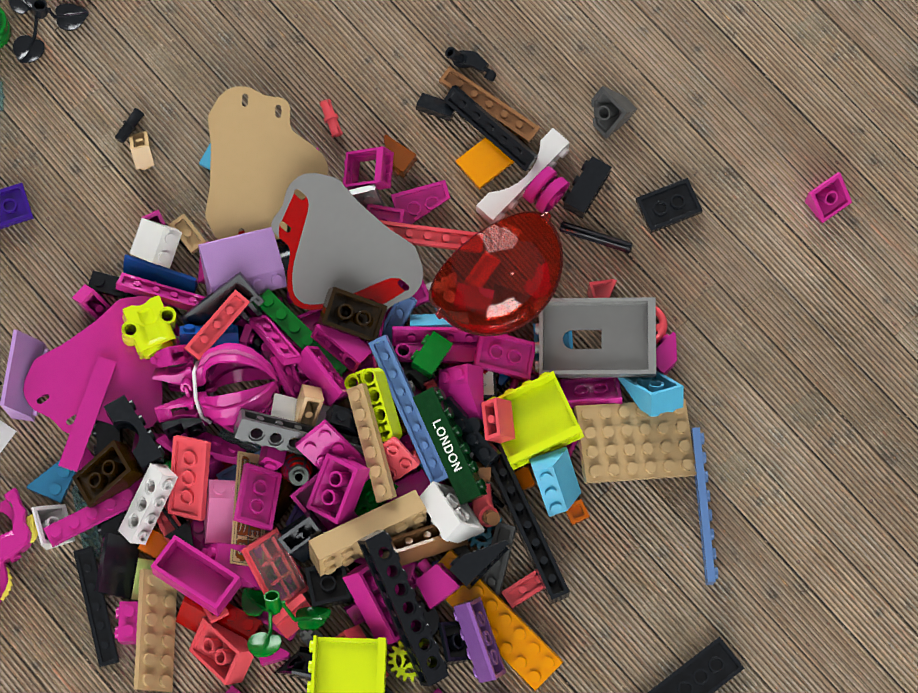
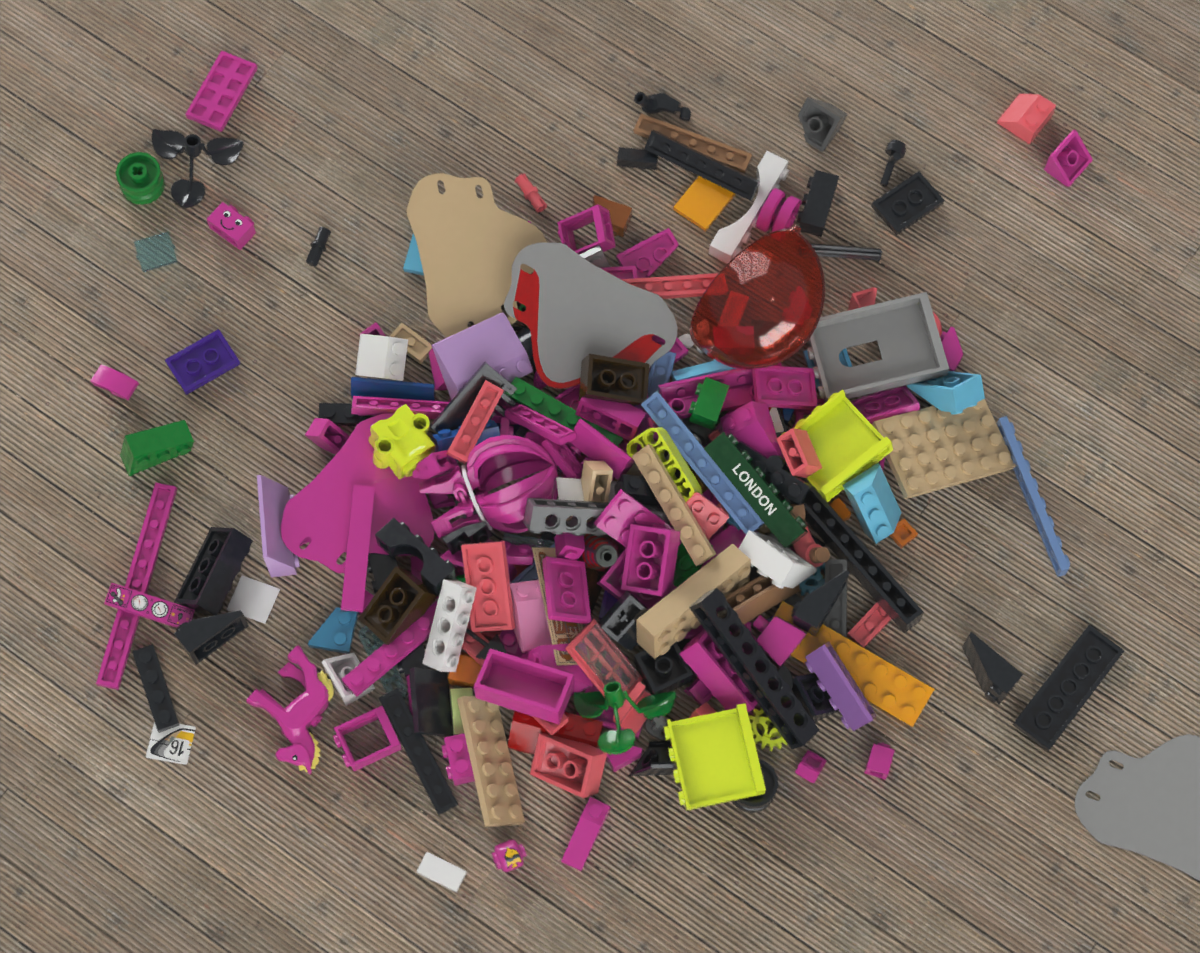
camera: 15 degrees left, 5 degrees down
(32, 582) = (358, 722): none -> dark pink window
(57, 88) = (231, 225): none -> dark pink brick
(141, 150) = (339, 268): tan slope -> none
(620, 663) = (992, 671): none -> black slope
(672, 153) = (895, 150): none -> black piece
(802, 147) = (1027, 116): none -> coral slope

